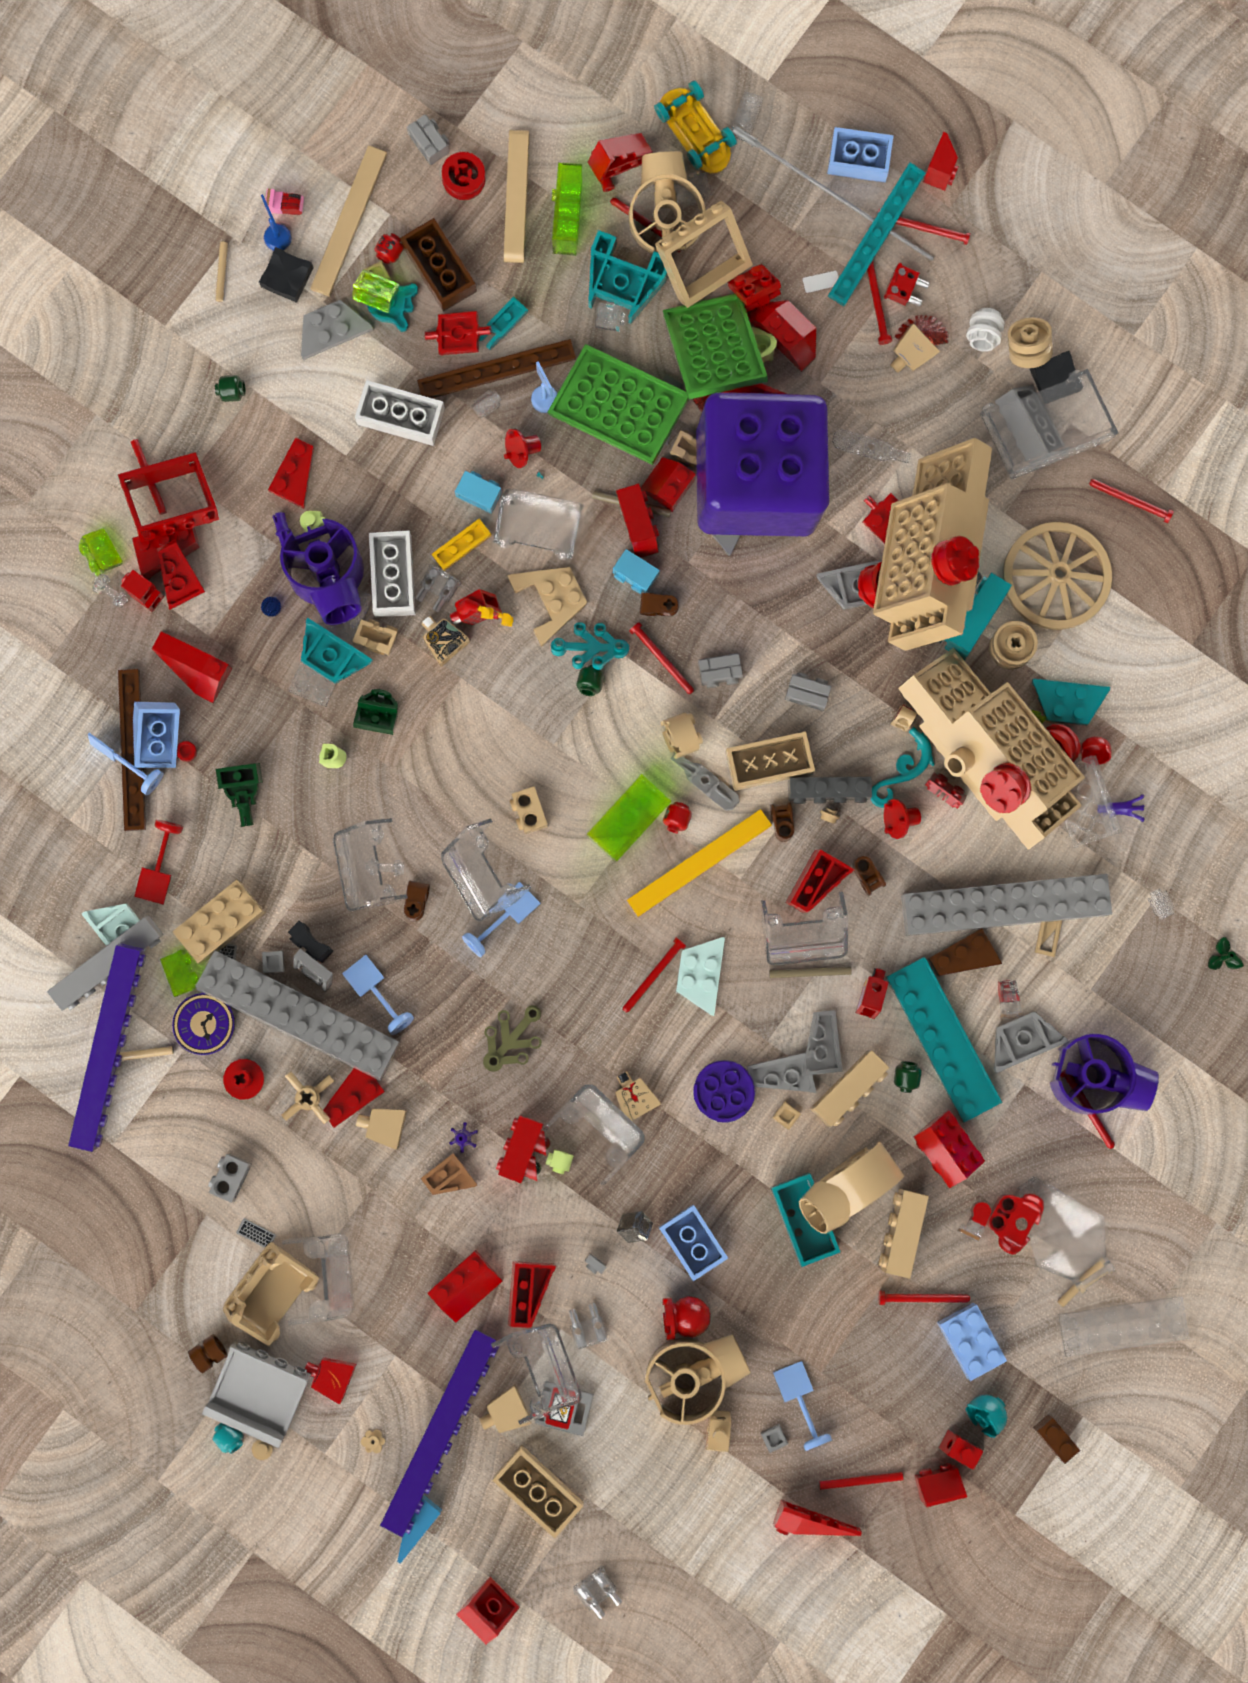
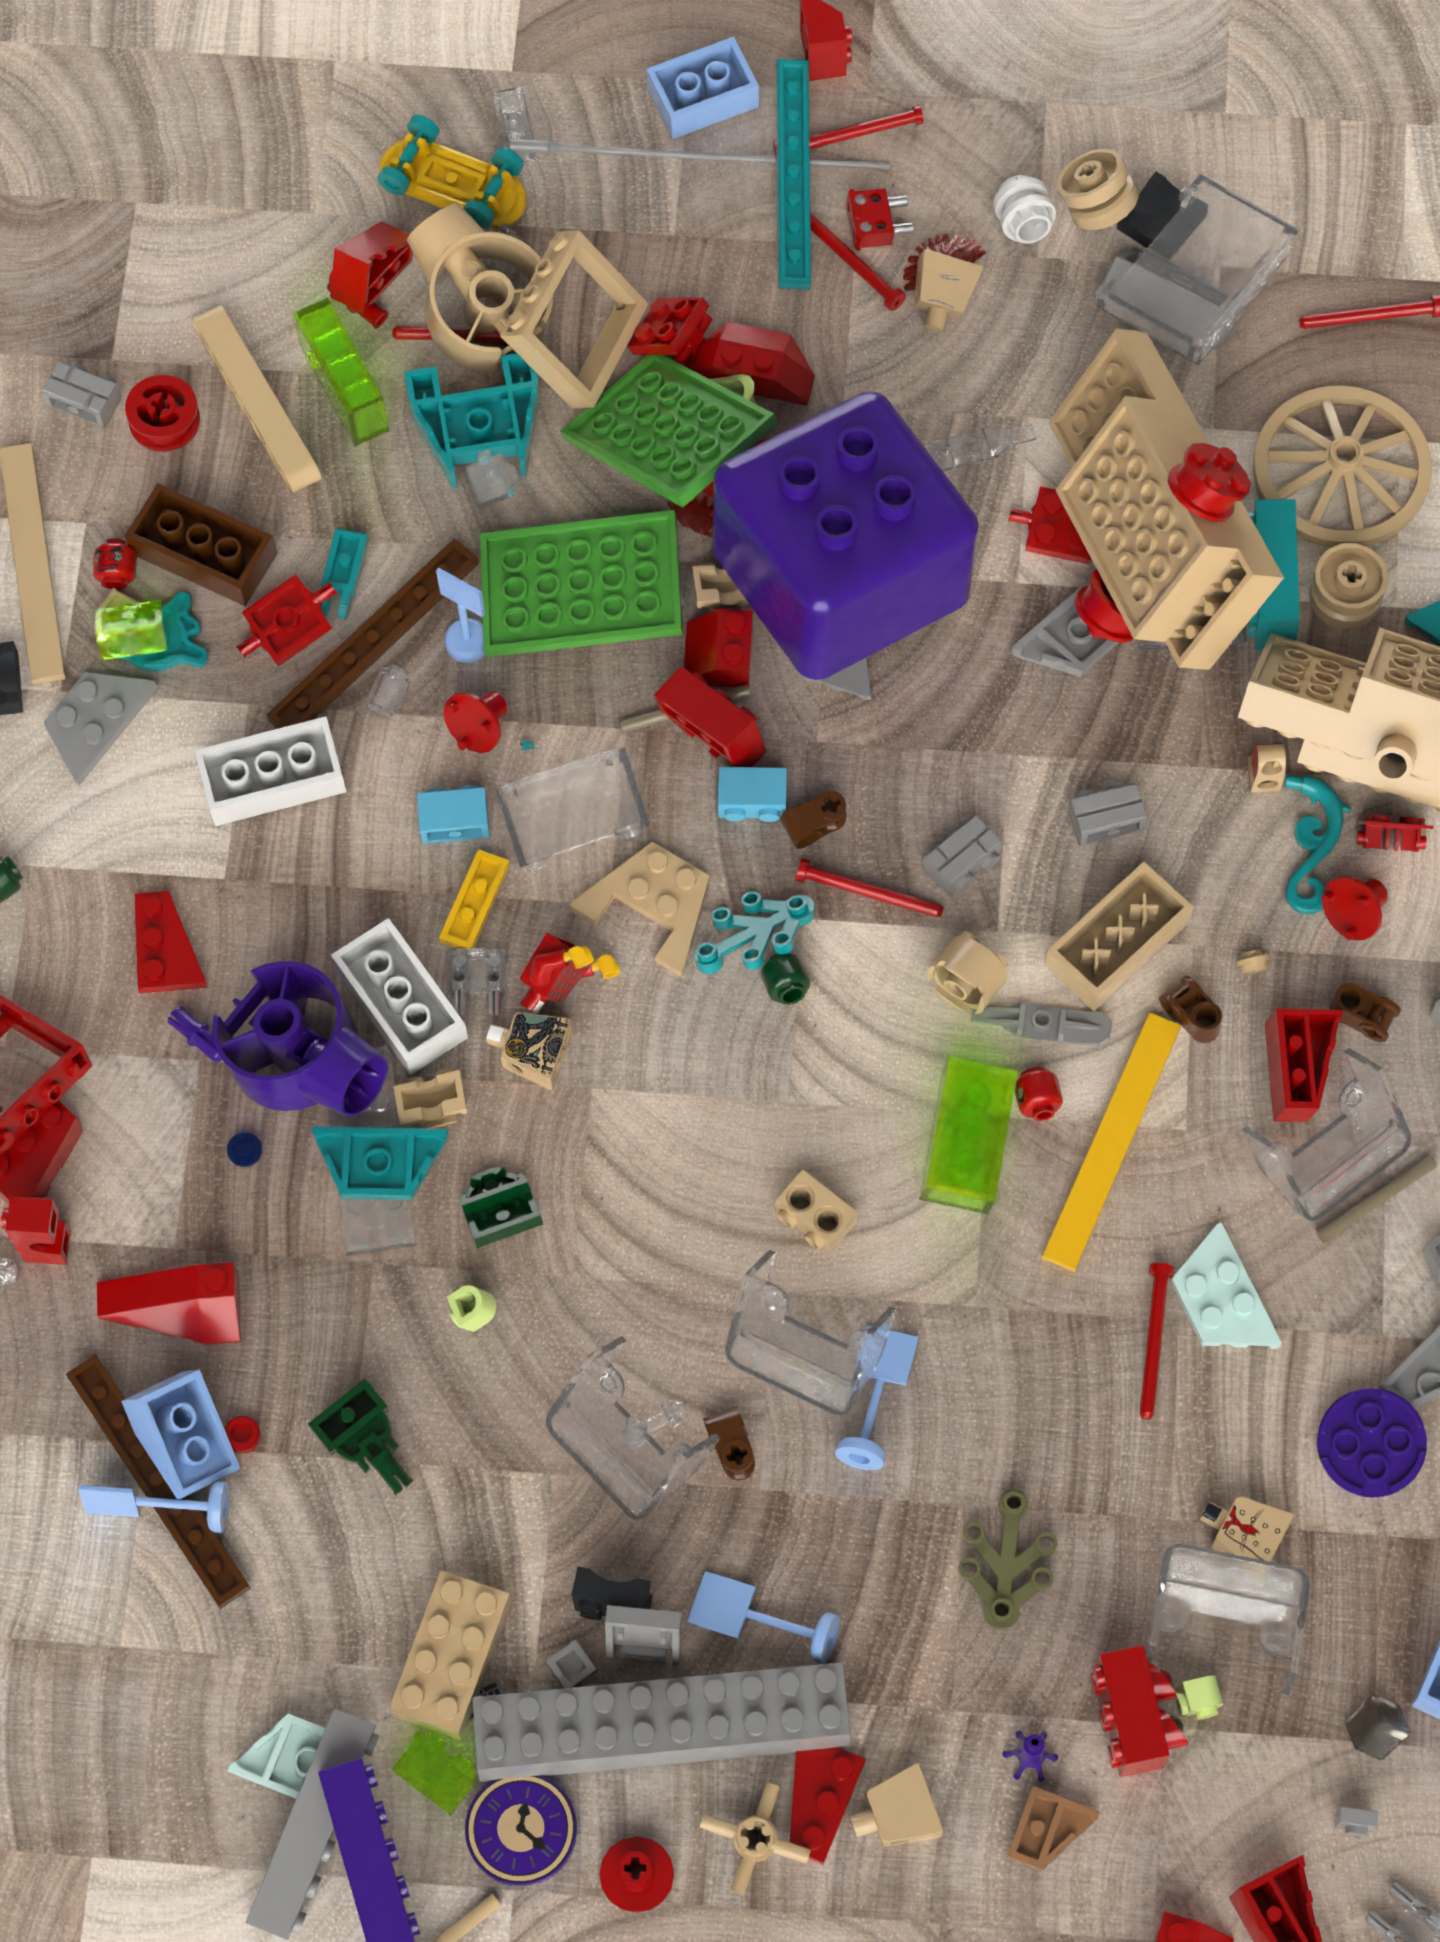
camera: 25 degrees left, 15 degrees down
(153, 883) = (313, 1662): red piece -> none
(178, 576) = (77, 1182): red wing -> none
(312, 519) = (229, 988): yellowish green plate -> none
(820, 281) = (754, 277): white sticker -> none
(829, 788) = (1229, 925): dark grey brick -> none

